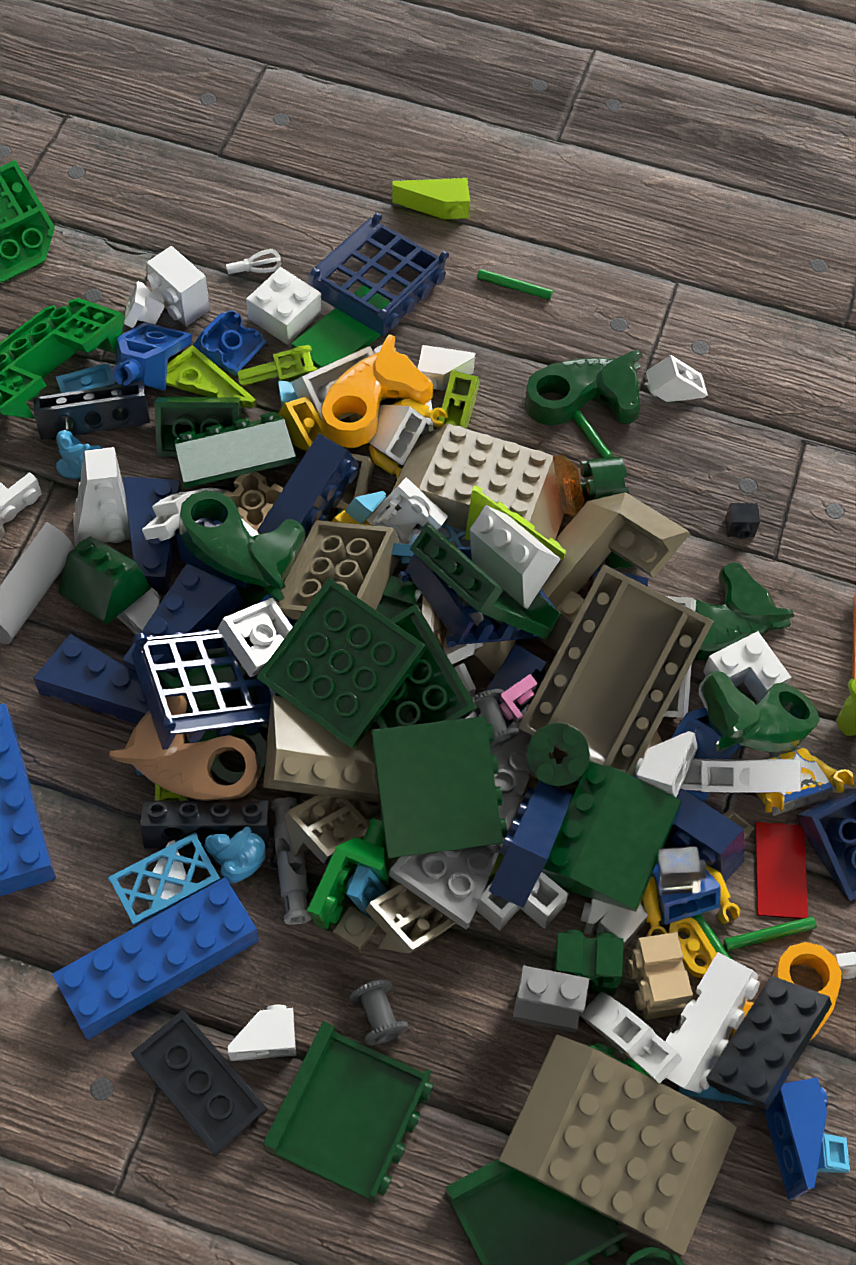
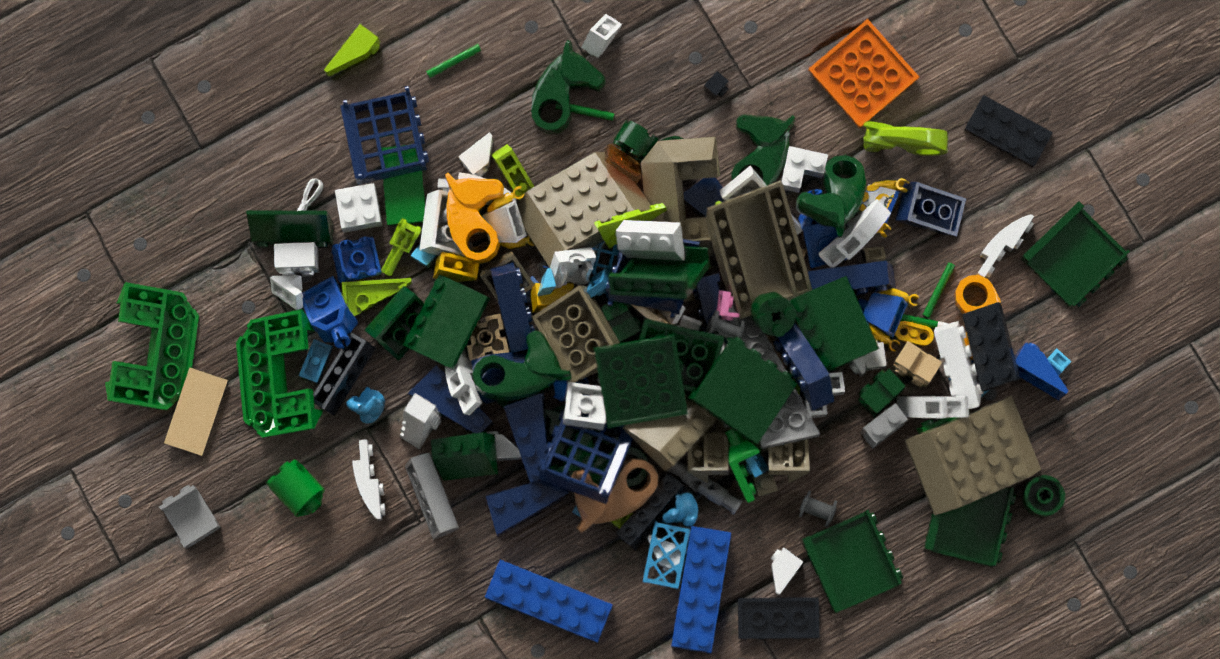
camera: 40 degrees left, 20 degrees up
(210, 251) = (280, 227): none -> dark green slope
(668, 763) = (822, 265): white slope -> none
(680, 870) = (879, 309): clear smoke brick -> none
(781, 870) = (913, 253): red piece -> none

